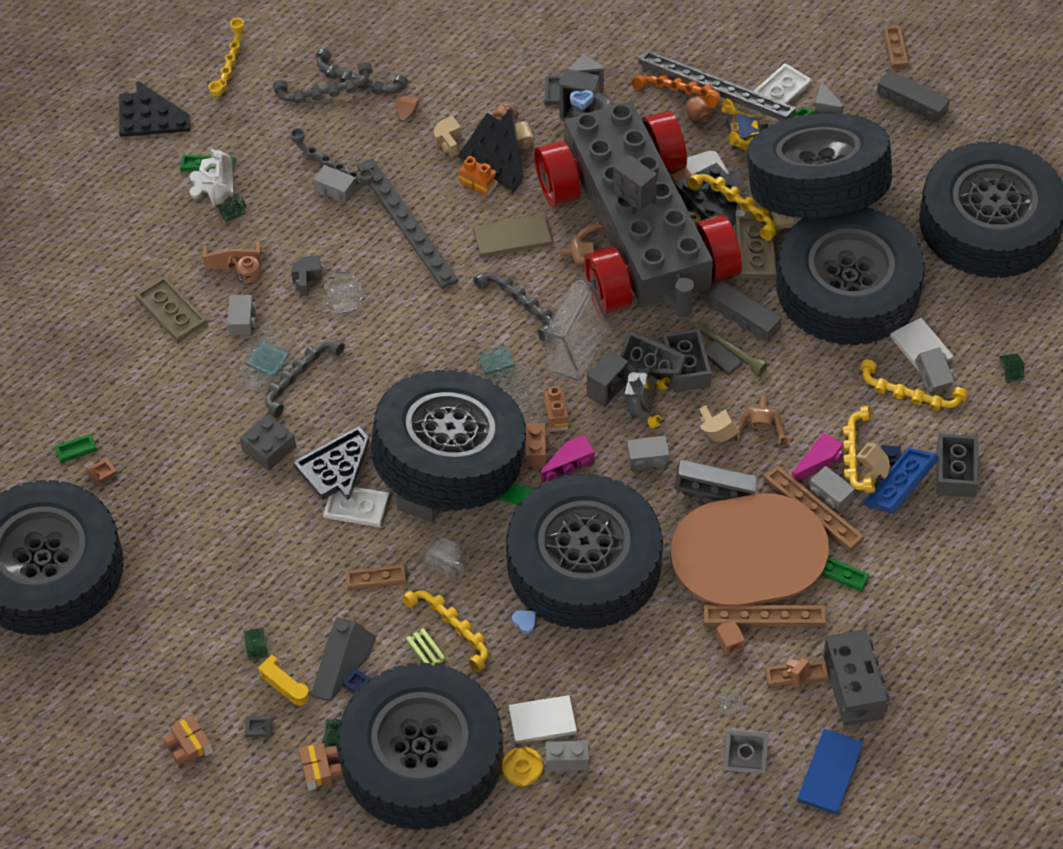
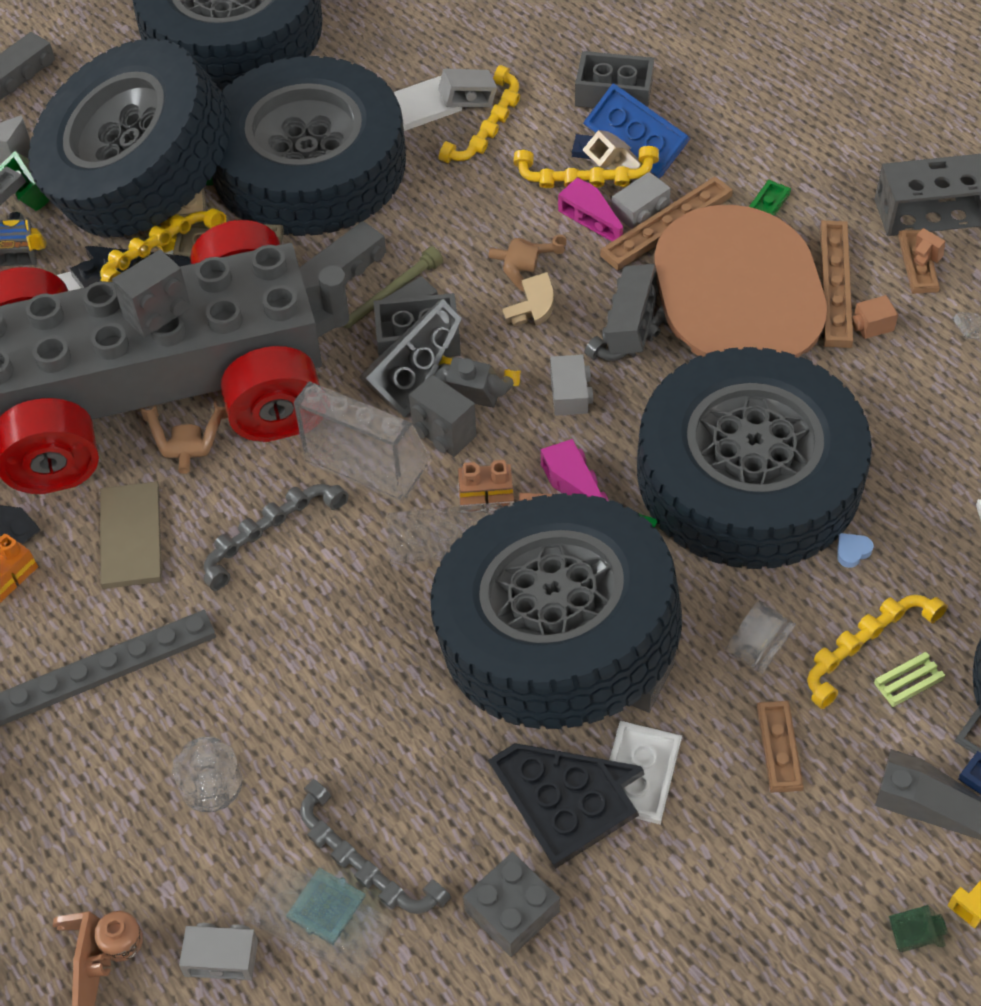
camera: 85 degrees left, 0 degrees up
(306, 270) = (143, 843): dark grey brick -> none
(495, 360) = (375, 564): clear light blue piece -> none
(1013, 367) = (464, 25): clear green bracket -> none

